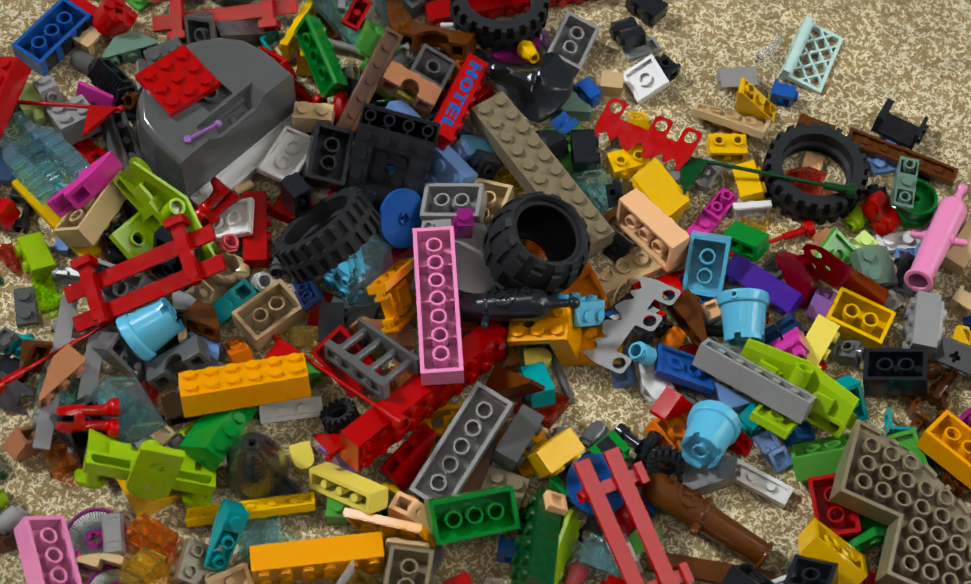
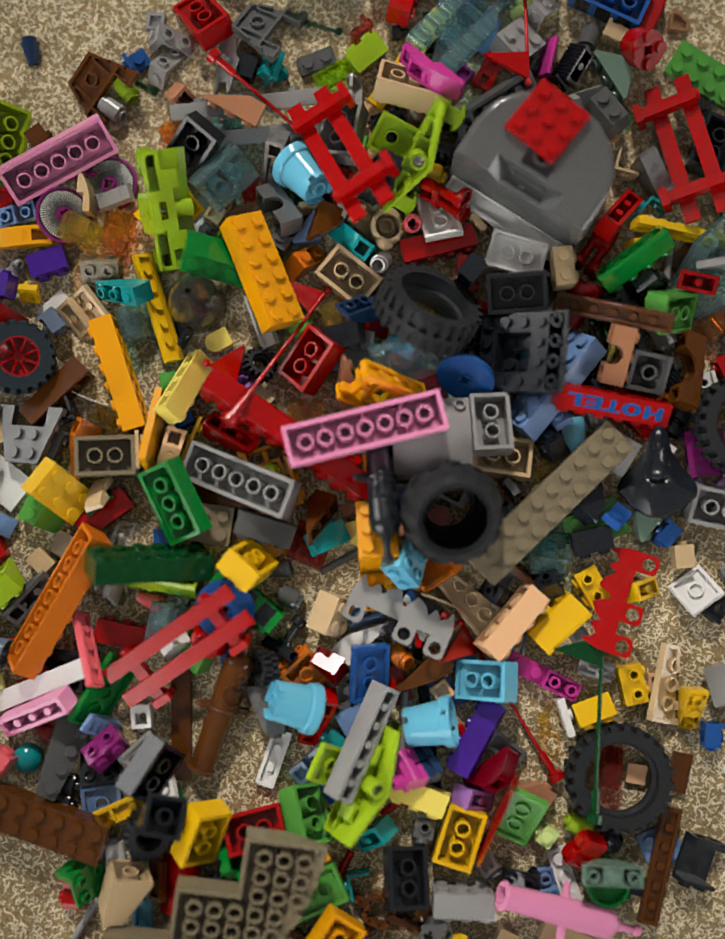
camera: 85 degrees right, 25 degrees up
(33, 351) = (261, 79): reddish brown slope -> none
(109, 426) = (188, 130): red piece -> none
(188, 139) = (482, 150): medium lavender hinge -> none
(200, 26) = (641, 137): dark grey slope -> none
(346, 52) = (650, 281): none -> black brick
(352, 72) = (629, 298): light grey hinge -> none
(367, 374) = (292, 362): dark grey fence -> none
(463, 223) = (461, 436): magenta brick -> none
(528, 51) = (694, 465): yellow cone -> none
(555, 502) = (198, 573): light nougat tile -> none
(617, 392) = (327, 614): none -> tan brick
(642, 353) = (370, 631): medium azure brick -> none
(747, 241) = (524, 716): green brick -> none
(875, 264) = (515, 848): sand green slope -> none

